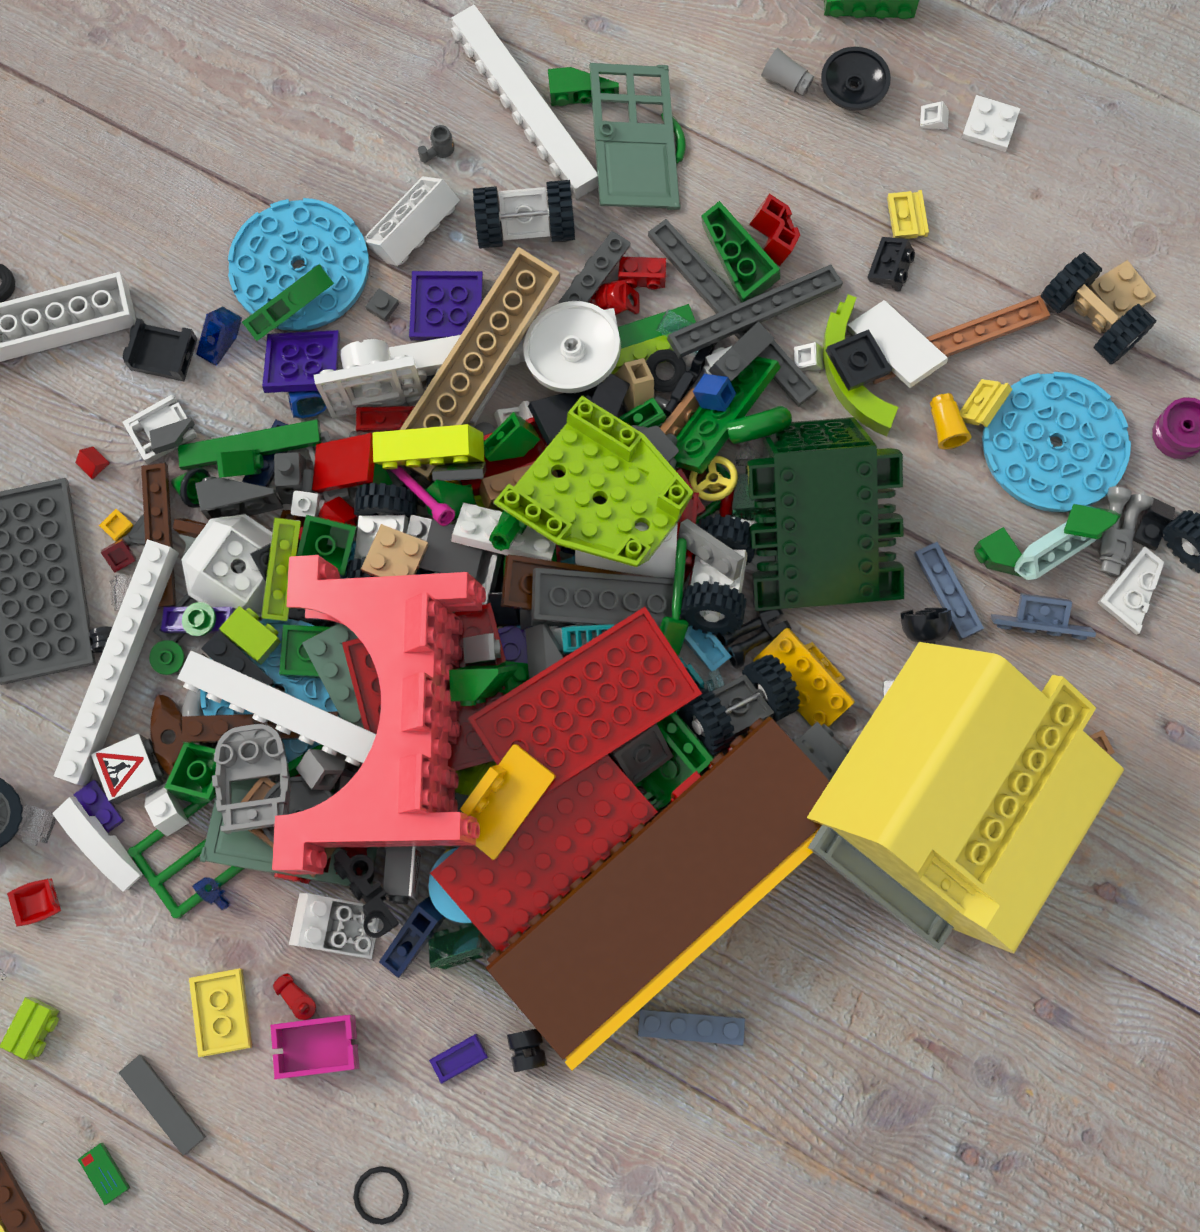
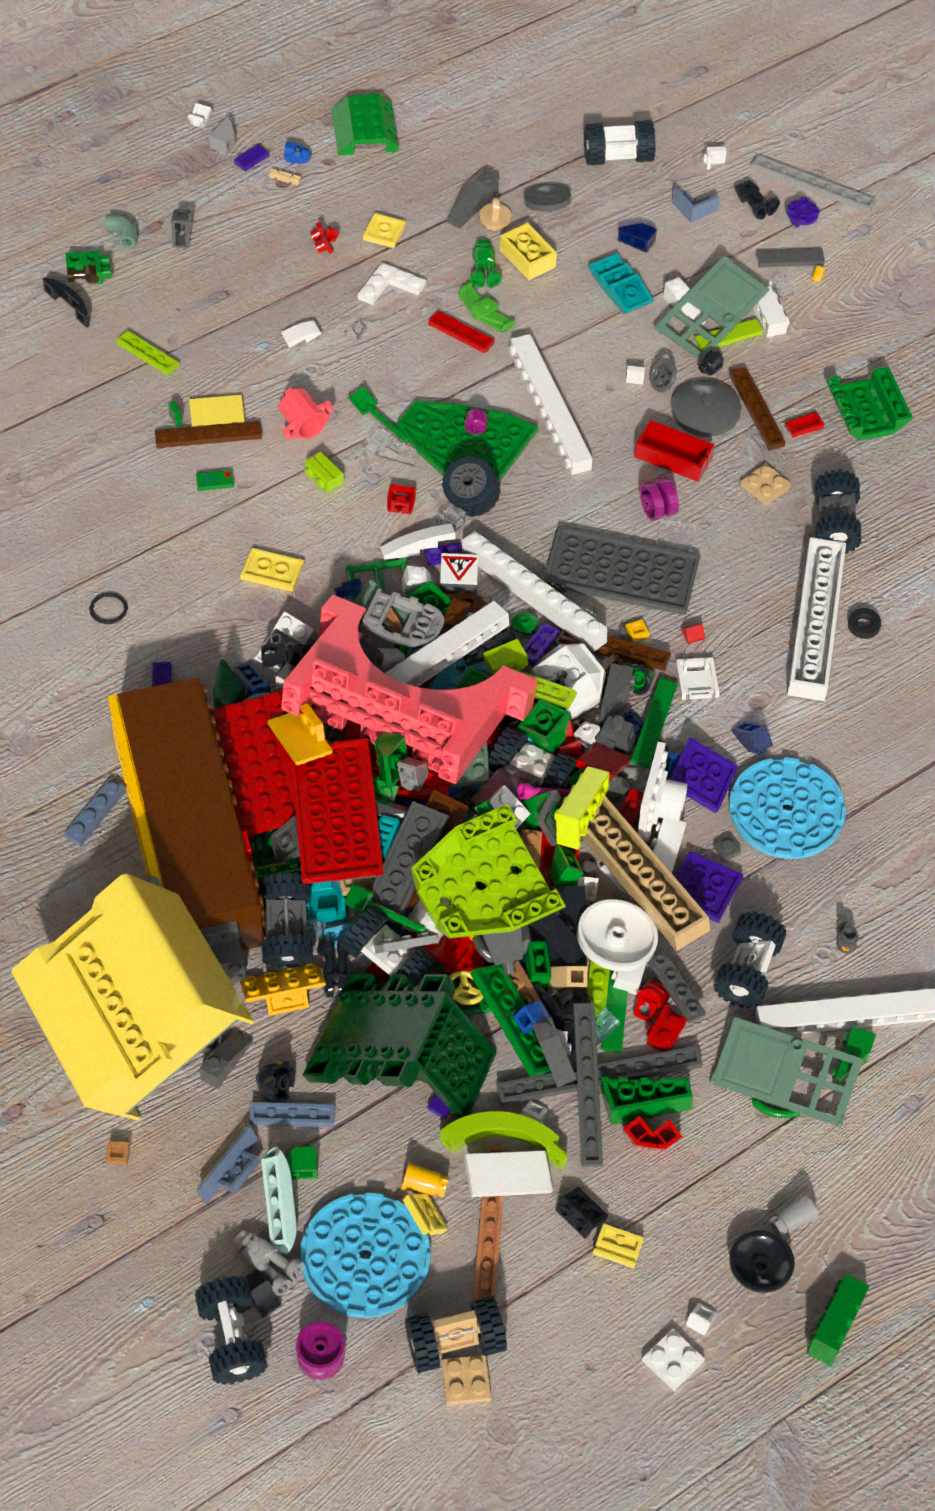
camera: 110 degrees right, 20 degrees down
(118, 555) = (613, 620): dark red plate -> none
(159, 350) = (759, 699): black panel -> none
(162, 1104) = (235, 521): dark grey tile -> none
(169, 435) = (686, 678): dark grey tile -> none
(198, 619) = (535, 640): piece -> none
(239, 463) = (638, 701): green slope -> none
(288, 302) = (751, 781): green slope -> none
(297, 1000) = (250, 611): red piece -> none
(315, 1046) = (216, 605): dark pink piece -> none
(394, 553) = (510, 752): tan plate -> none
(411, 220) = (787, 891): white slope -> none
(759, 425) = (484, 1027): green cylinder -> none
(858, 360) = (505, 1130): black plate -> none
(1090, 521) = (285, 1225): green slope -> none
(1132, 590) = (215, 1244): white wing -> none

